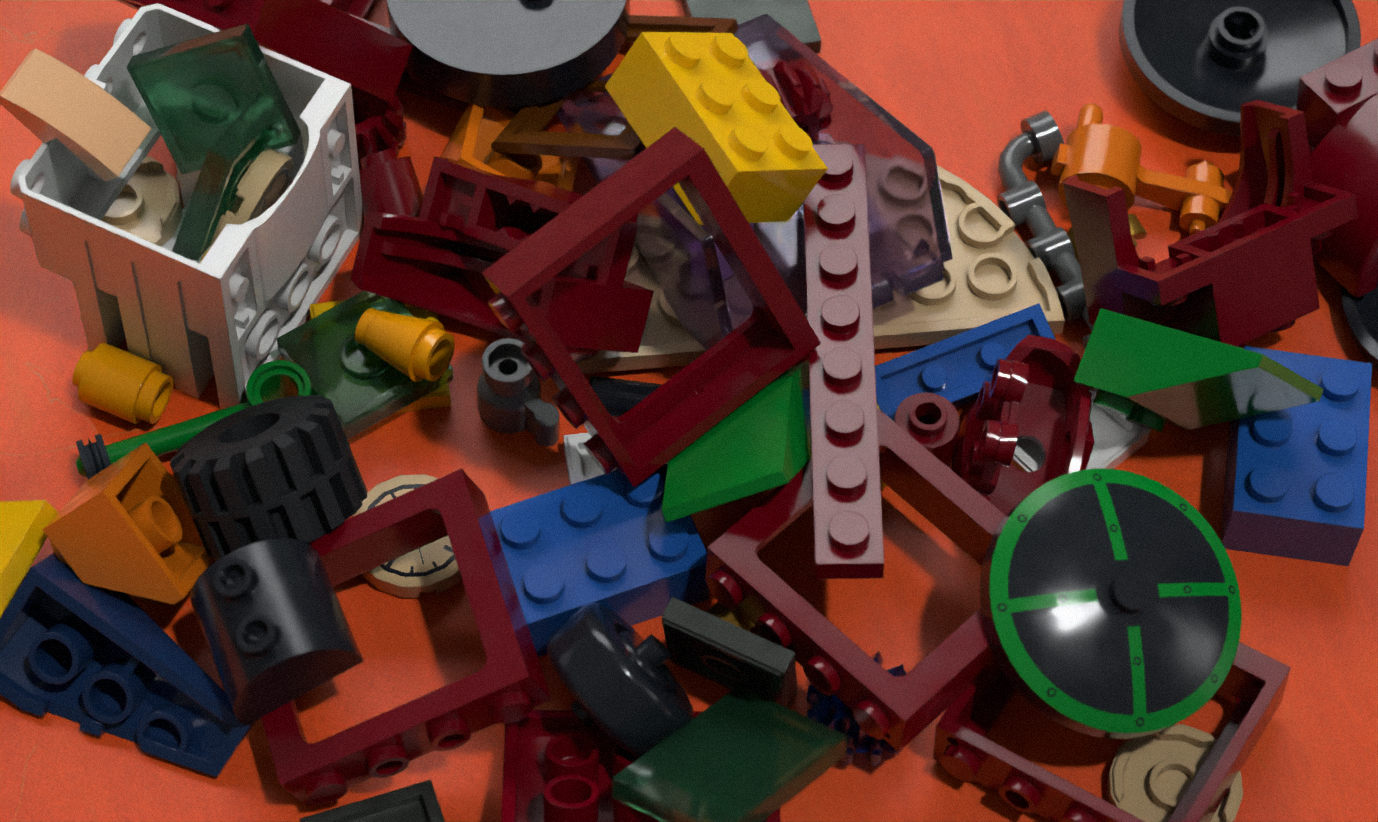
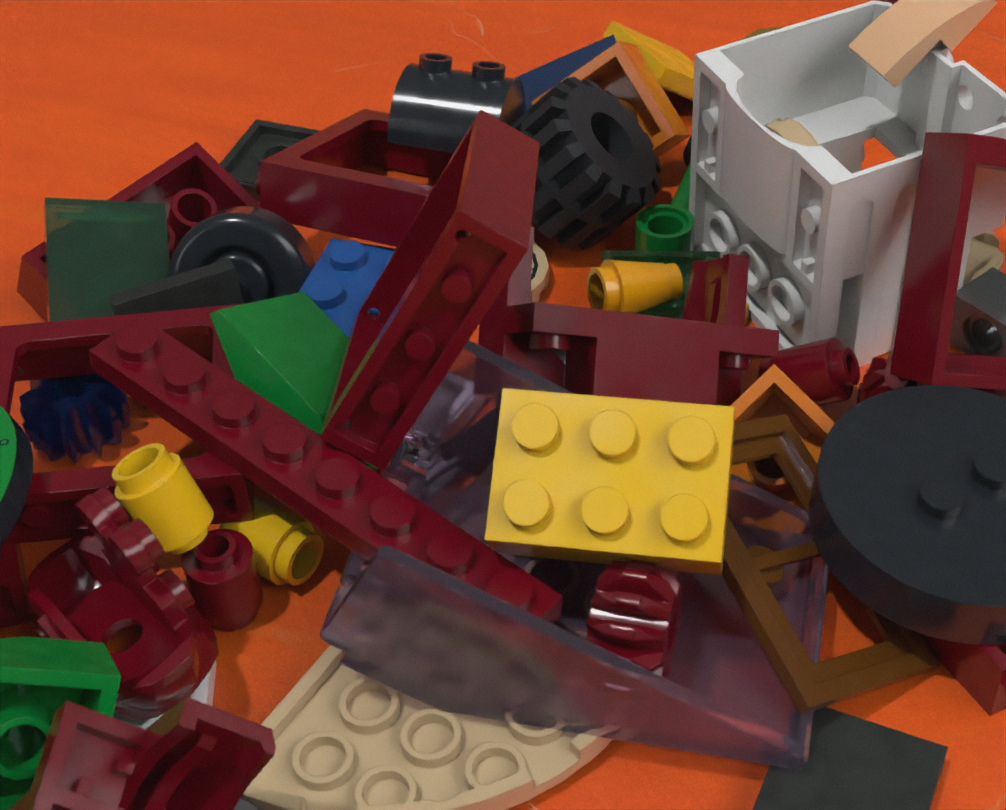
camera: 135 degrees right, 15 degrees down
(203, 88) = (905, 129): clear green tile -> none
(221, 173) = (805, 94): clear green tile -> none
(956, 364) = (264, 646): blue plate -> none
(963, 415) = (163, 496): none -> yellow brick

